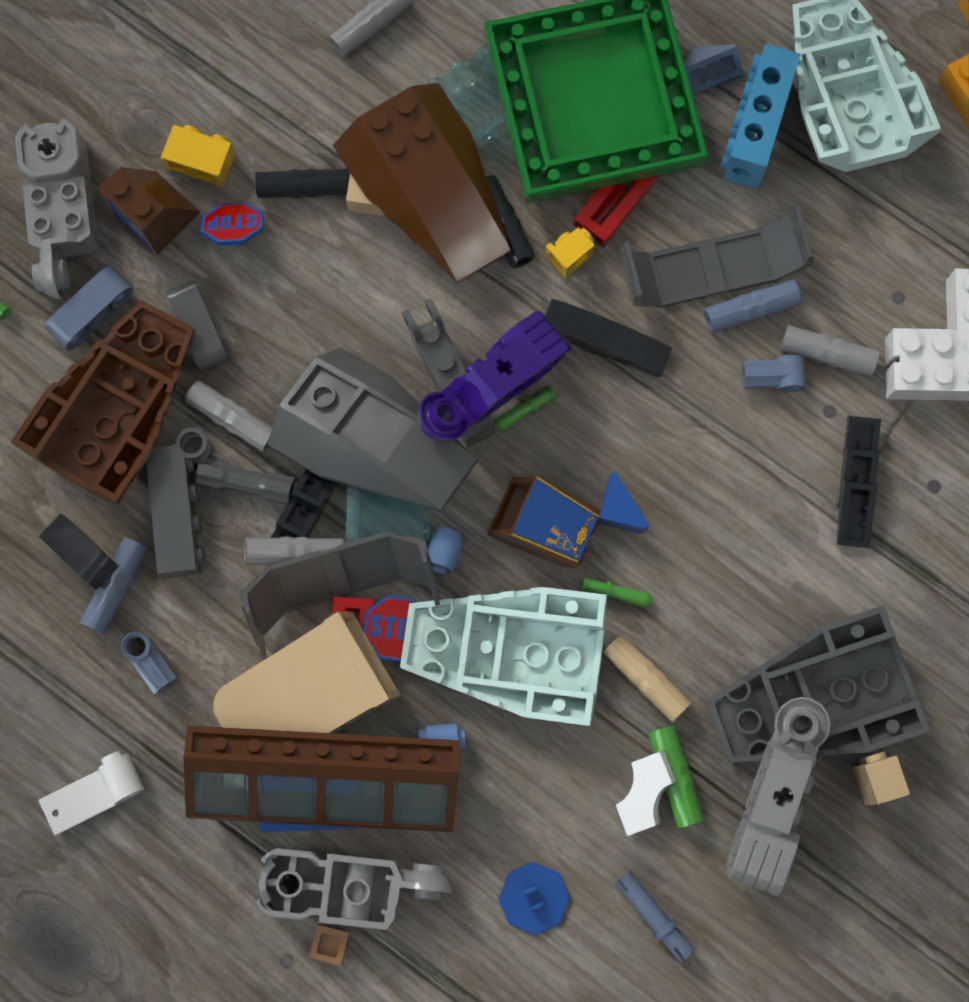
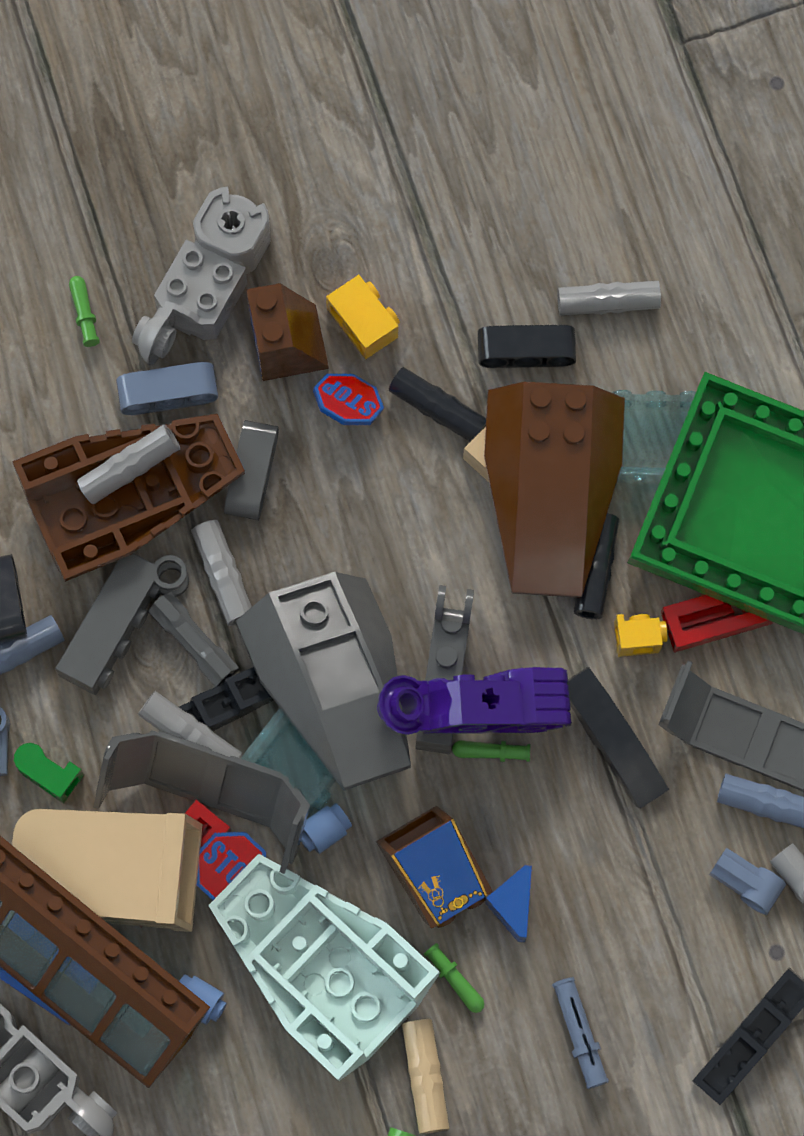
camera: 30 degrees right, 5 degrees down
(102, 383) = (128, 464): none -> light grey axle
(206, 656) = (45, 773): none -> green leg
(336, 95) = (526, 346): none -> black beam
(734, 567) = (584, 1045): none -> sand blue pin

